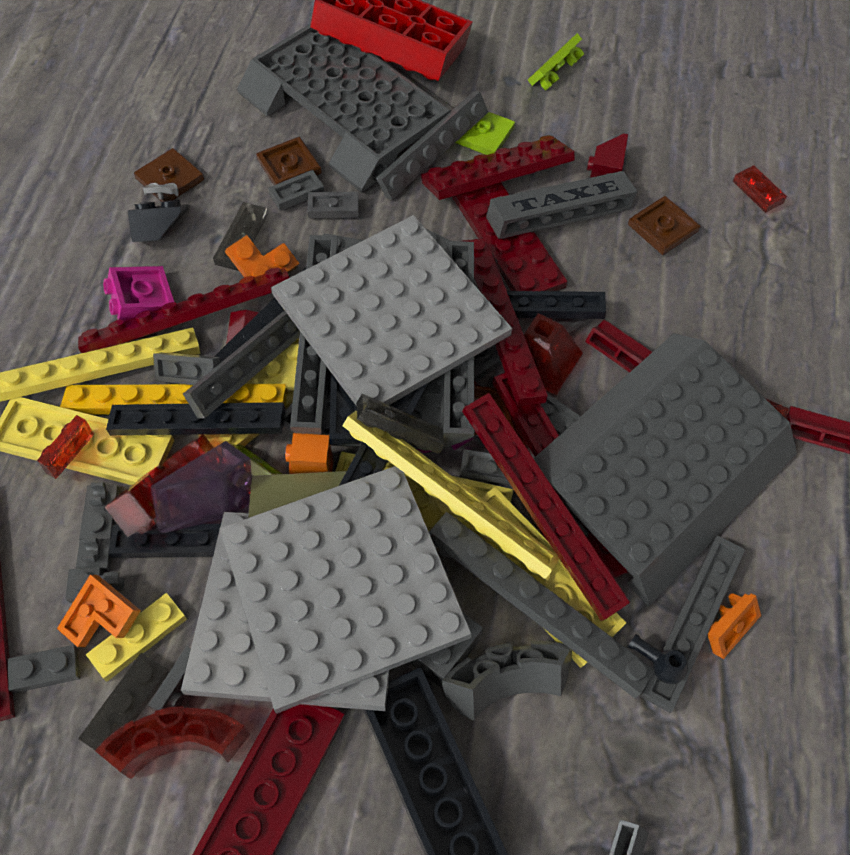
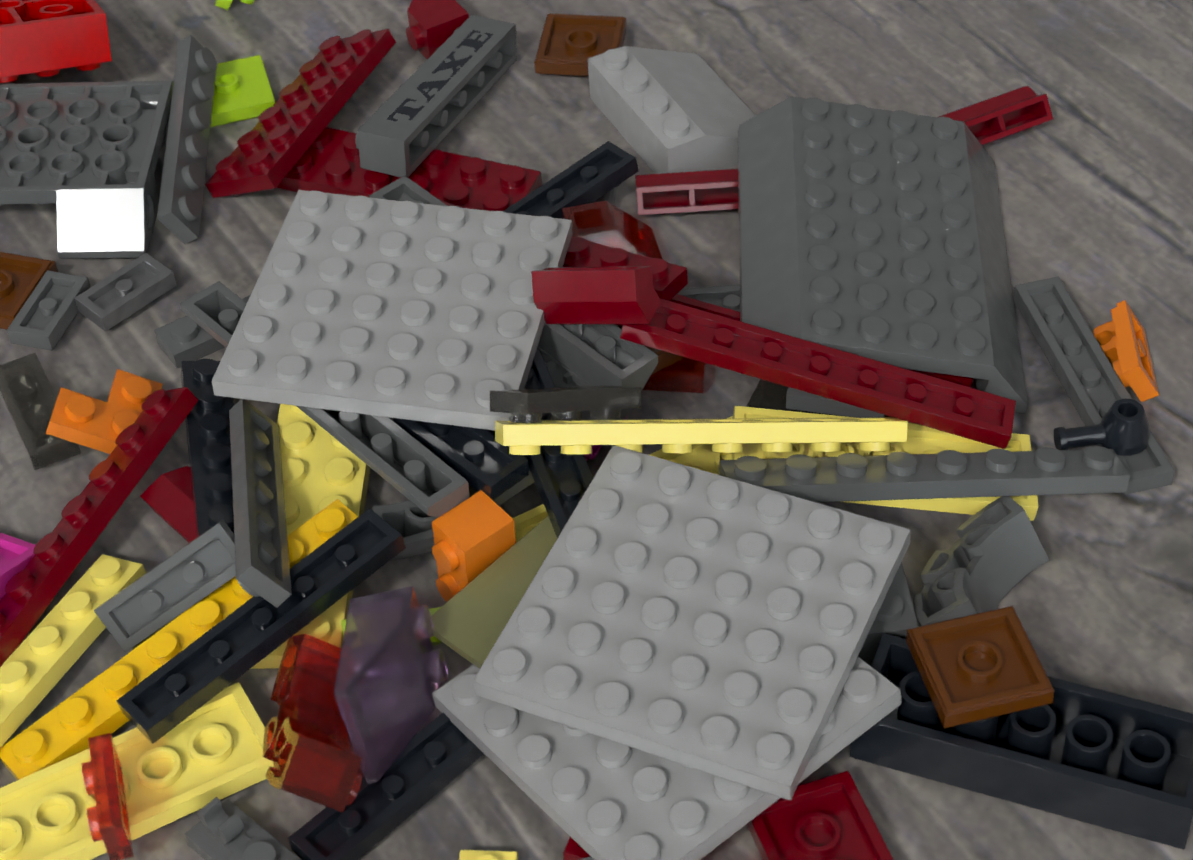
camera: 40 degrees left, 15 degrees down
(433, 730) = (979, 666): none -> reddish brown plate
(466, 380) = (596, 295): none -> dark red piece
(480, 465) = (703, 397): dark grey plate -> none
(668, 295) = (668, 108): none -> light grey slope

